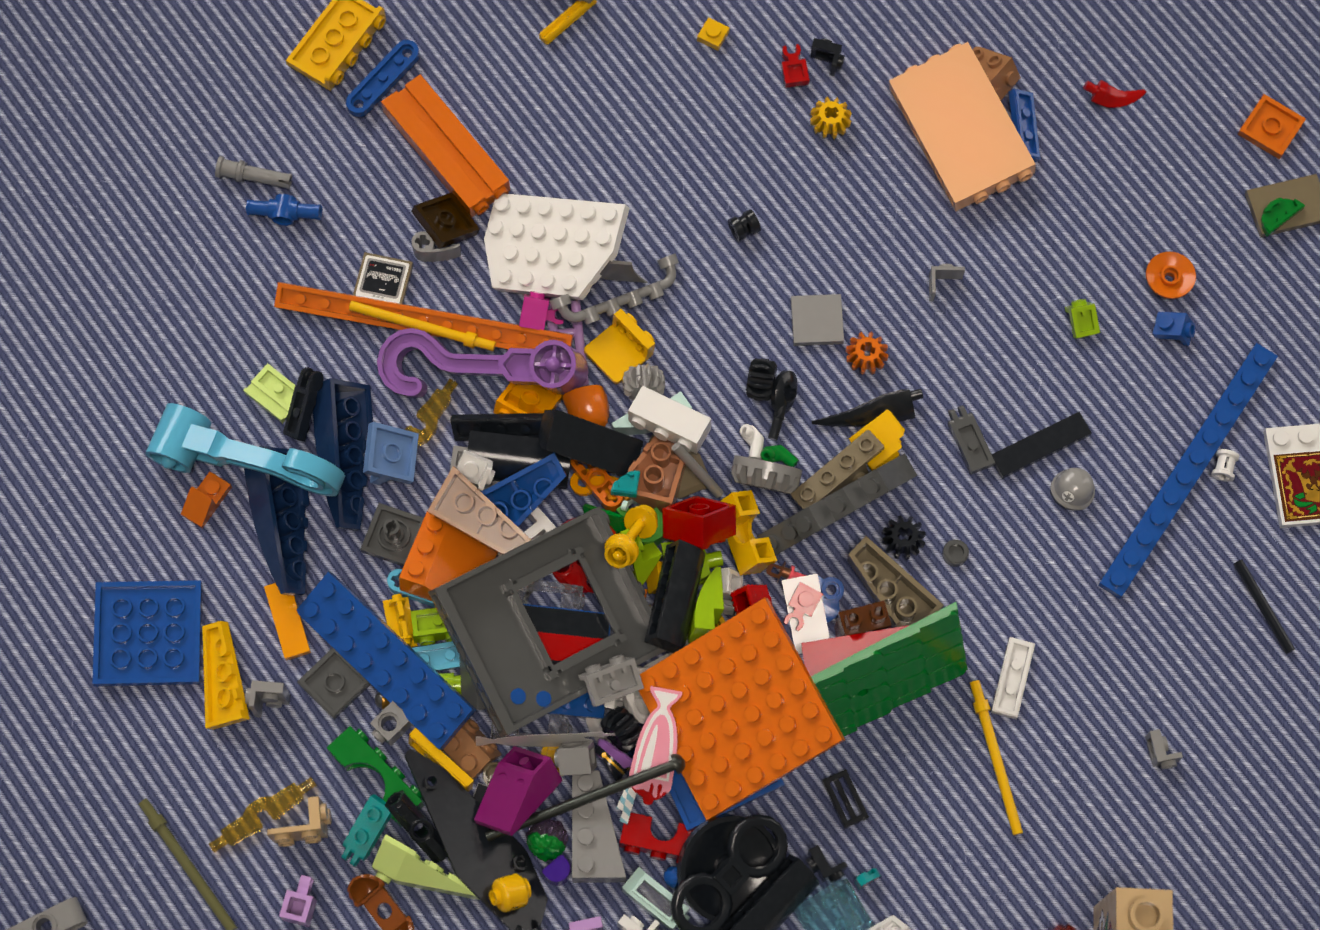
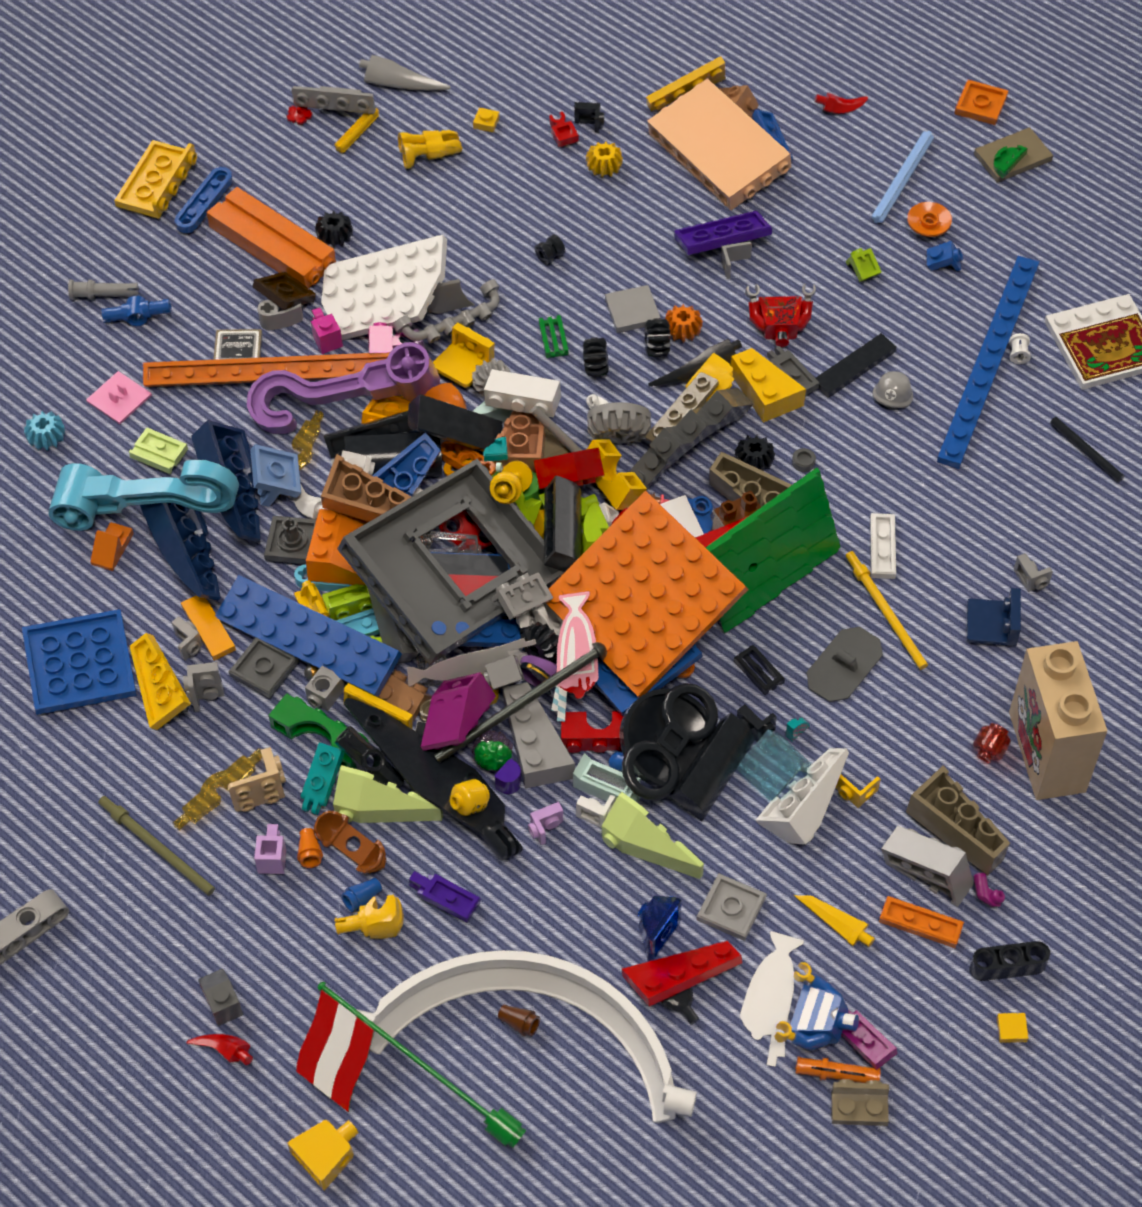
camera: 10 degrees left, 15 degrees down
(166, 348) = (44, 430): none -> medium azure gear
(246, 313) = (119, 397): none -> bright pink piece
(268, 637) = (189, 635): none -> light grey bracket
(303, 403) = (186, 443): black hinge -> none
(339, 907) = (309, 849): none -> orange cone
(419, 493) = (308, 504): none -> white bar
(468, 339) = (326, 372): yellow bar -> none
(479, 281) = (326, 331): none -> dark pink brick
(524, 144) = (334, 228): none -> black gear
(649, 58) = (431, 143): none -> yellow piece
(724, 317) = (551, 322): none -> green tile
(782, 399) = (618, 369): black piece -> none
(804, 602) = (682, 513): plate -> none
(833, 369) = (657, 337): none -> black gear
(934, 43) = (670, 93): none -> yellow wing
(936, 454) = (766, 385): none -> yellow wedge
(936, 811) = (844, 664): none -> dark grey shield
(938, 244) = (722, 232): none -> dark purple tile
(974, 367) = (780, 316): none -> red torso
(1106, 797) = (995, 620): none -> dark blue bracket
(1156, 210) = (902, 177): none -> light blue axle

